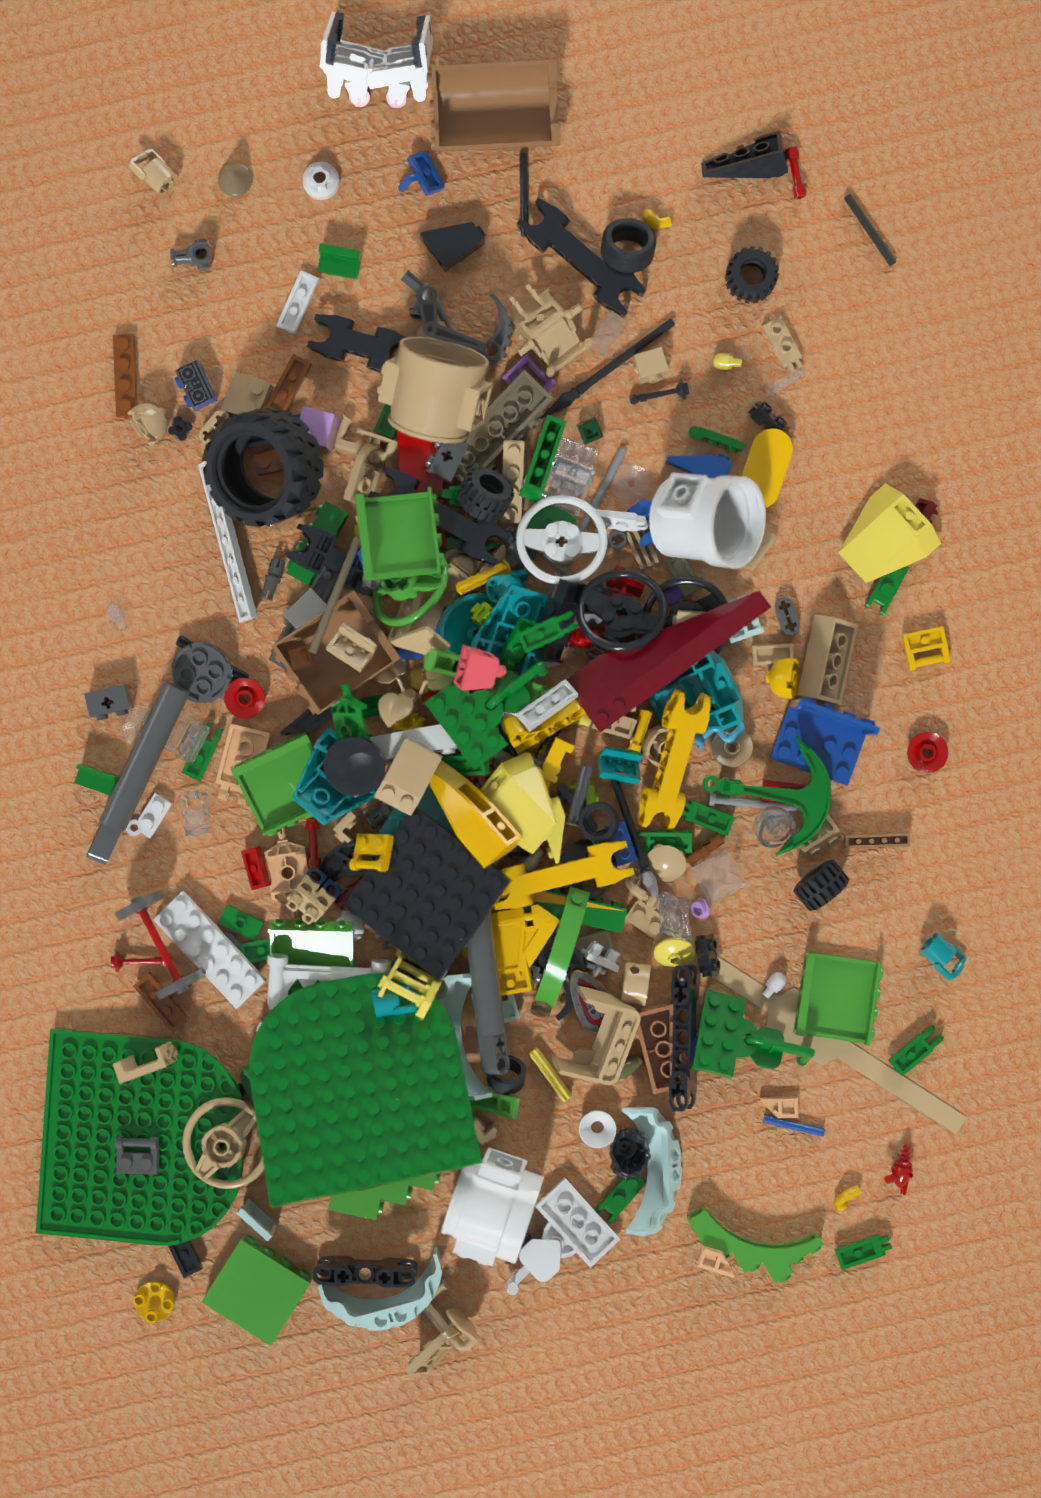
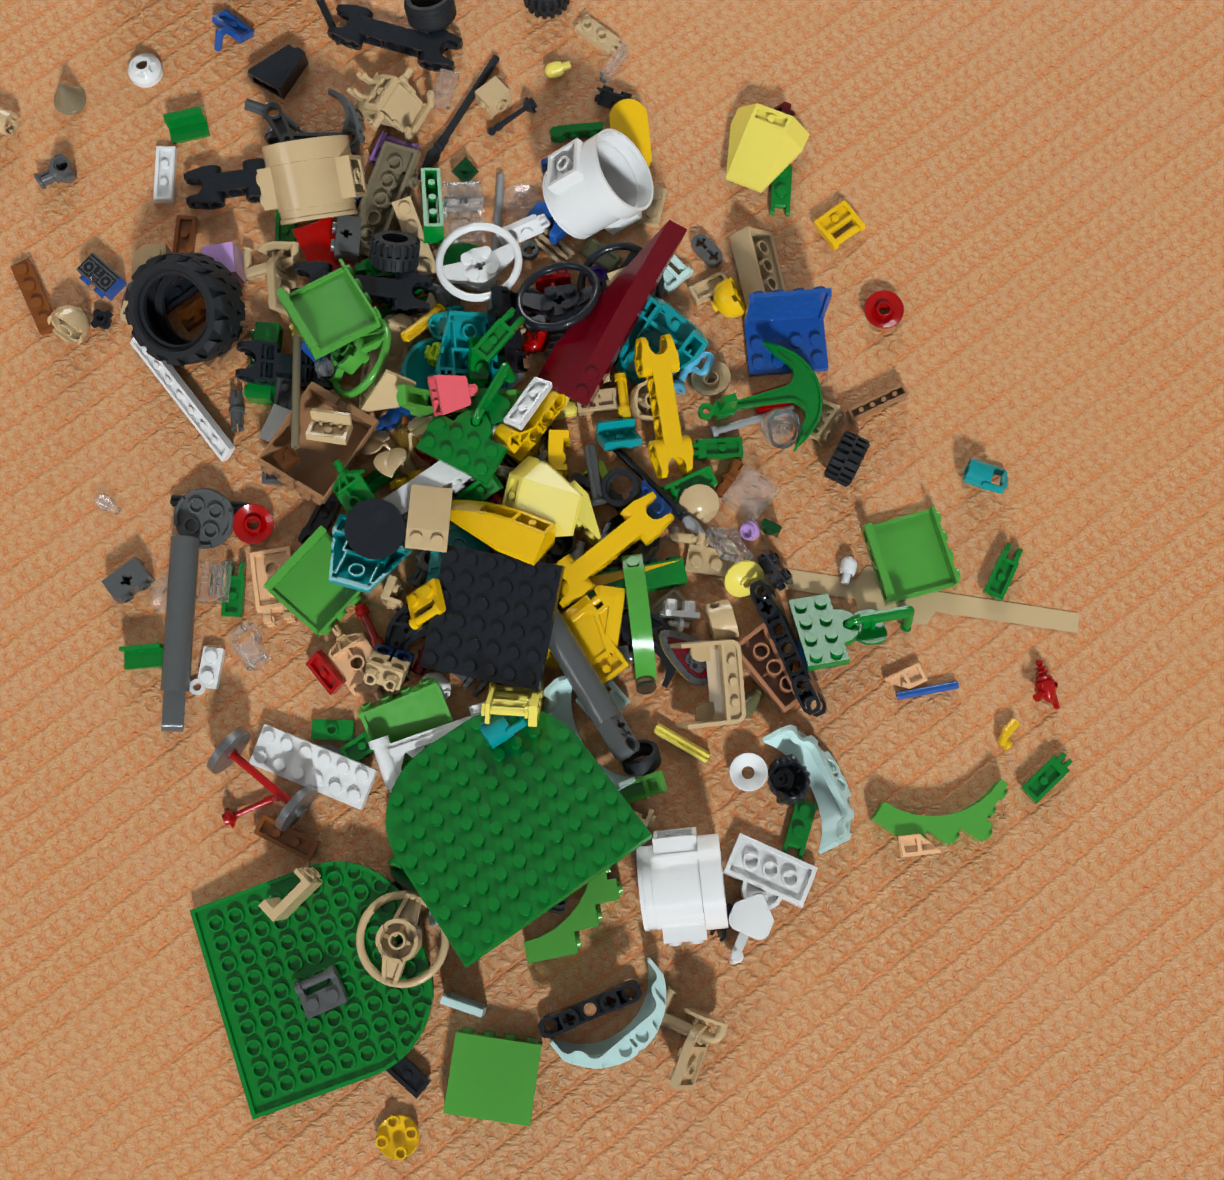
camera: 20 degrees left, 10 degrees down
(720, 916) = (770, 528): none -> dark green tile

